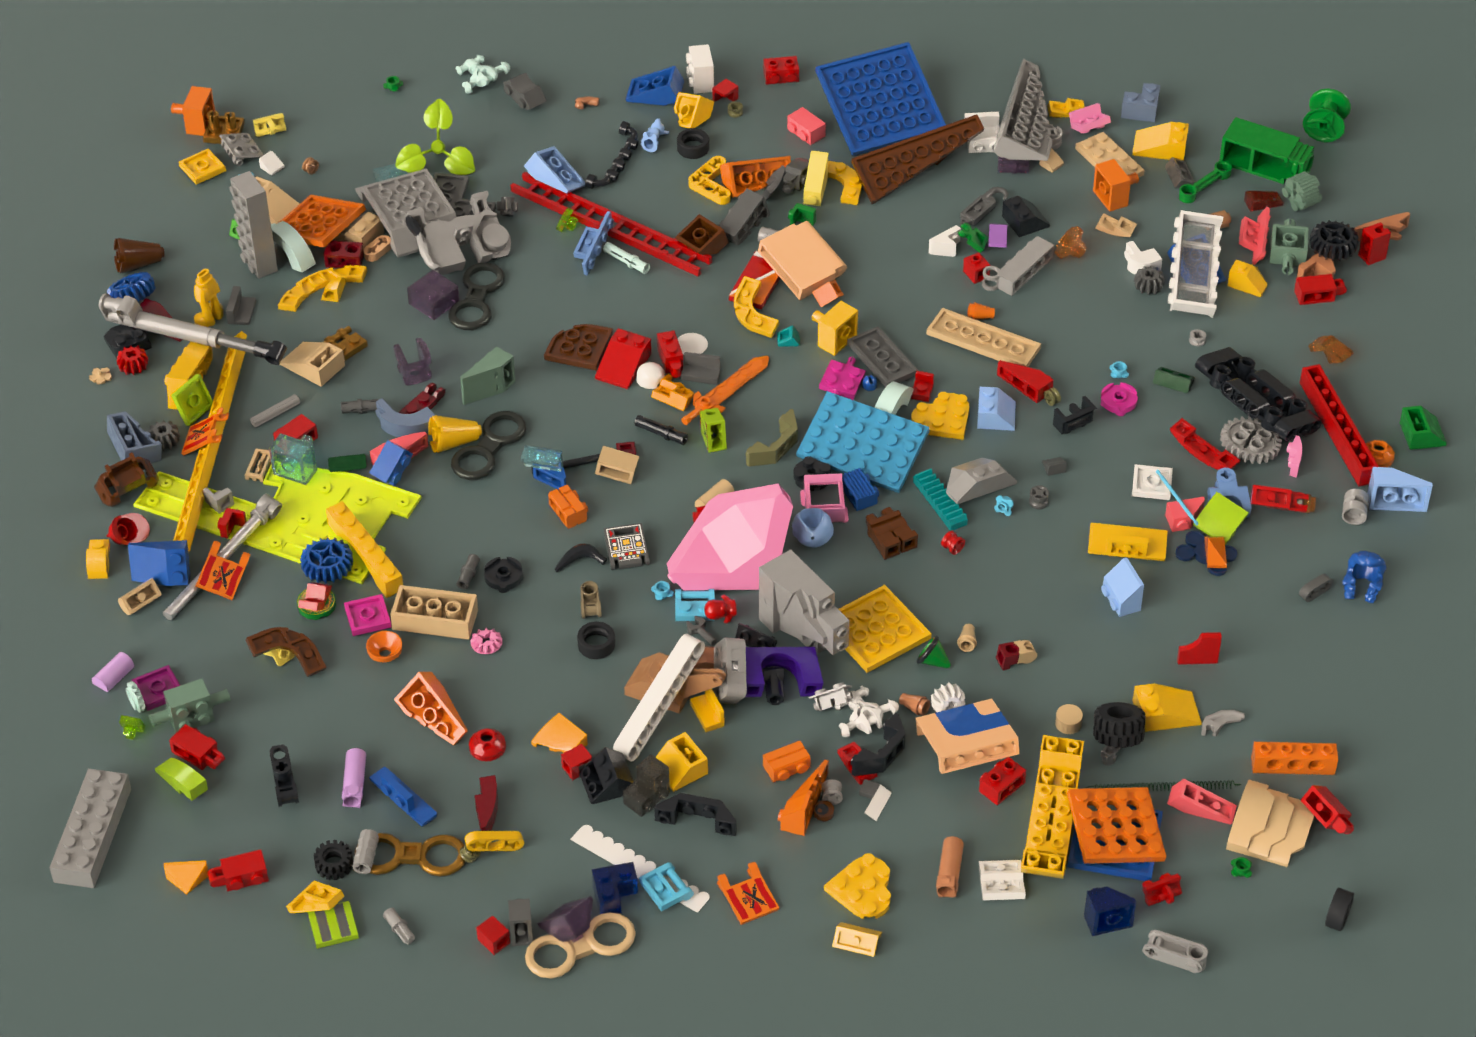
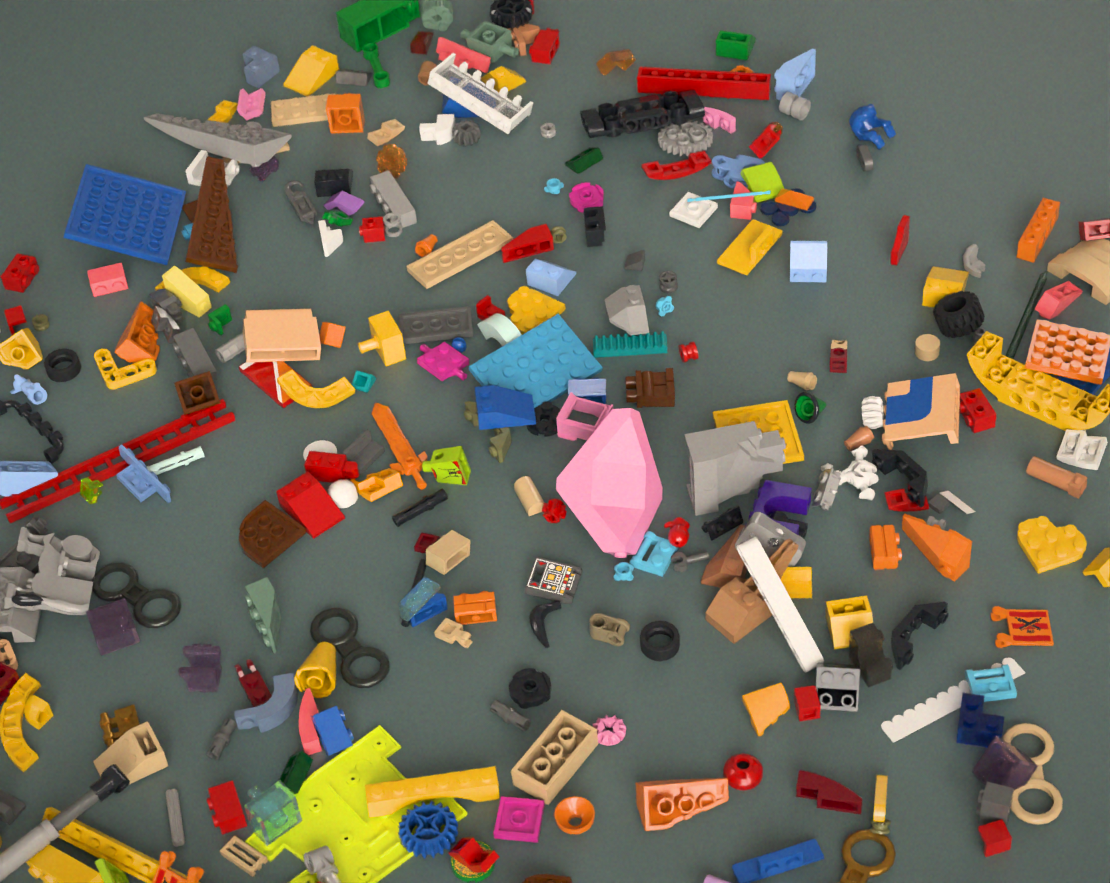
camera: 60 degrees left, 0 degrees up
(534, 501) = (451, 631): none -> tan plate
(792, 433) = (503, 407): none -> blue slope

